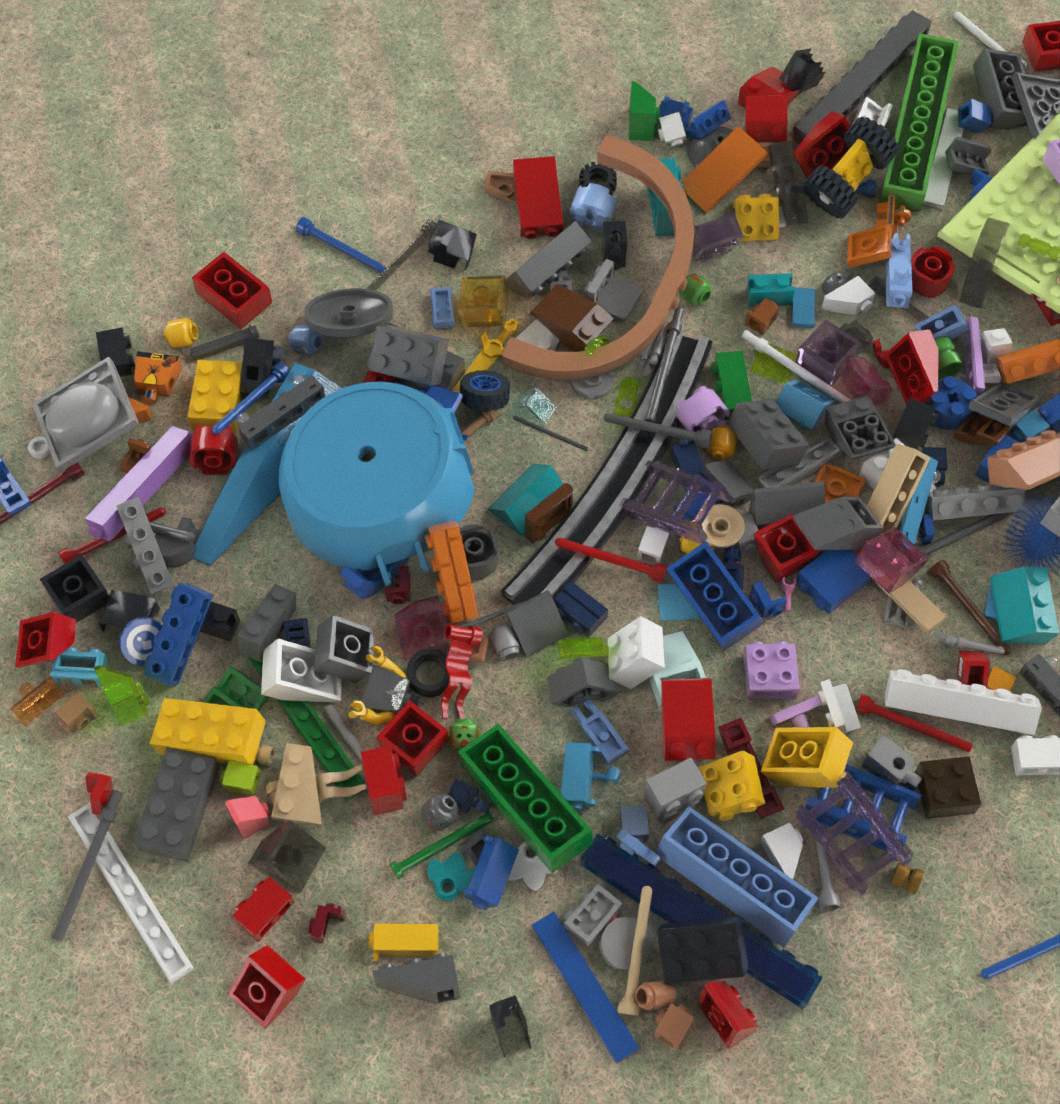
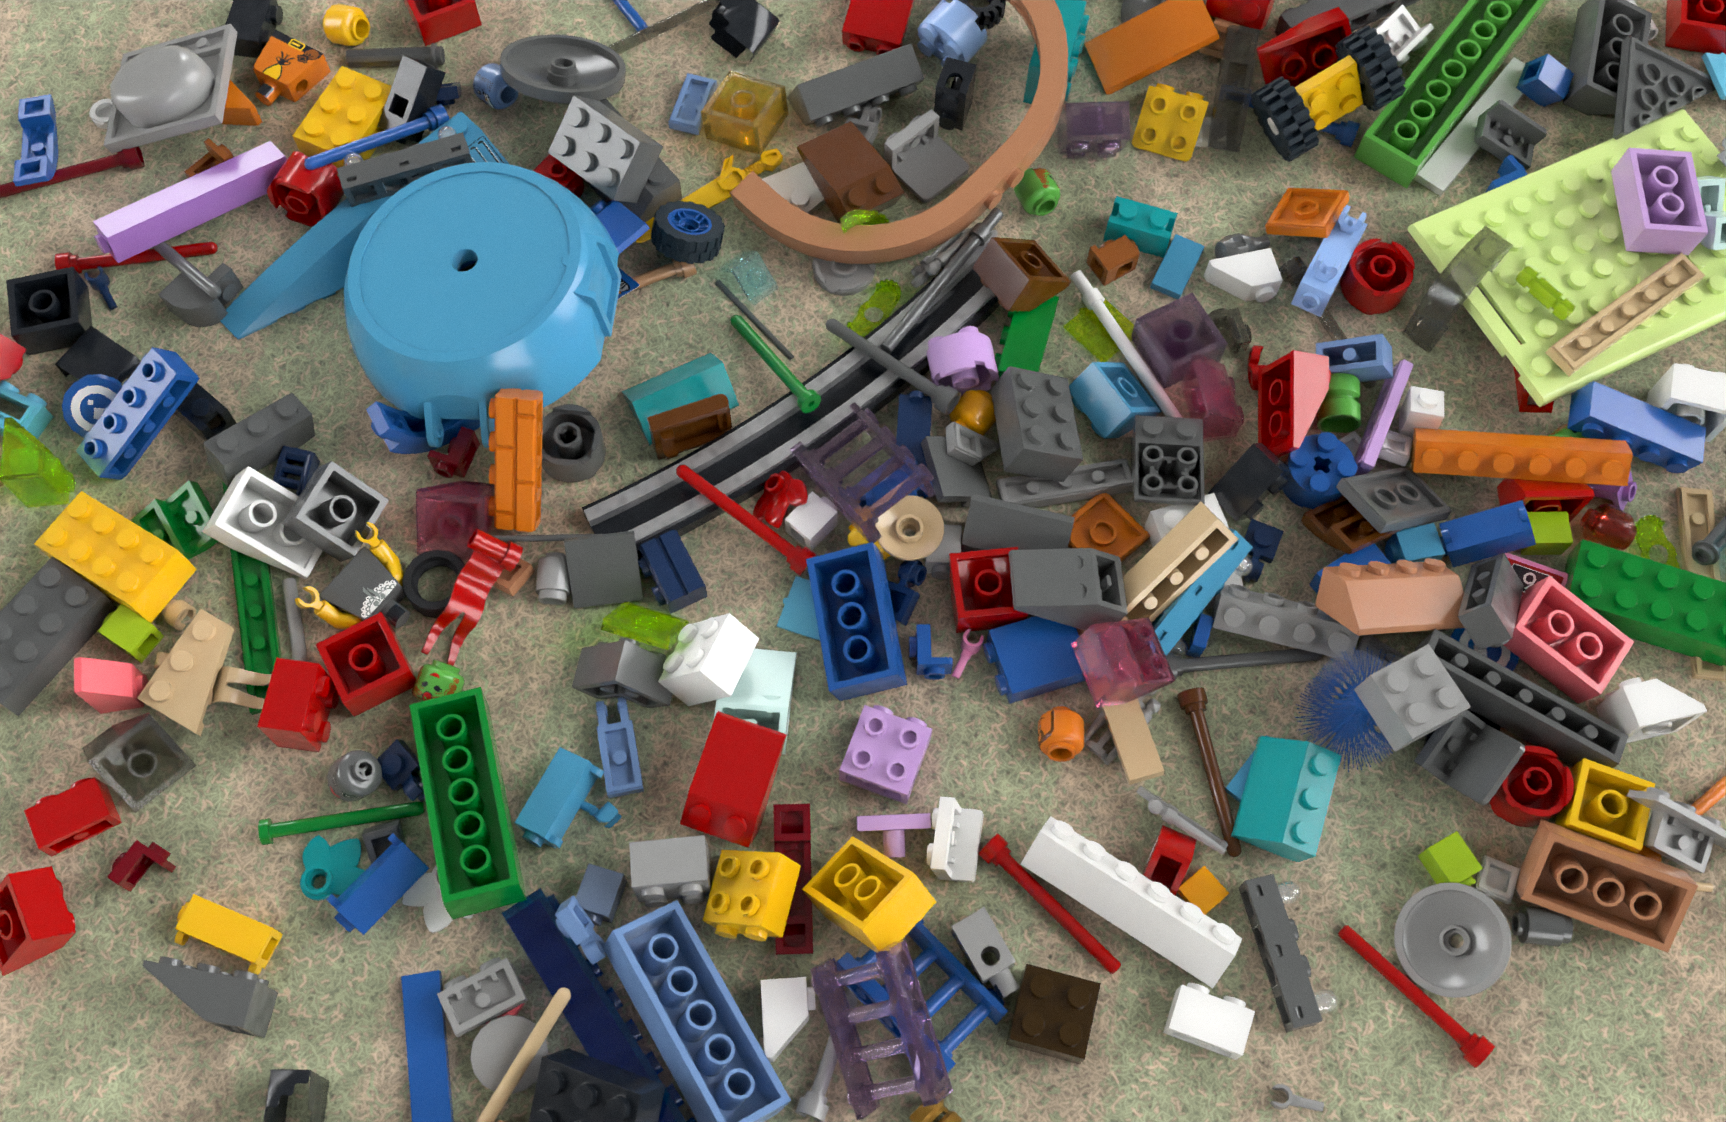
camera: 20 degrees right, 5 degrees up
(96, 562) = (101, 284): none -> dark blue hand
(145, 546) = (154, 283): light grey bracket -> none
(616, 469) = (807, 399): none -> green bar
(625, 538) = (778, 494): none -> red plate
(713, 344) = (1019, 273): none -> reddish brown slope
(729, 462) = (967, 444): none -> light grey tile
(871, 619) = (1061, 734): none -> orange head
(893, 214) = (1364, 183): orange hips -> none

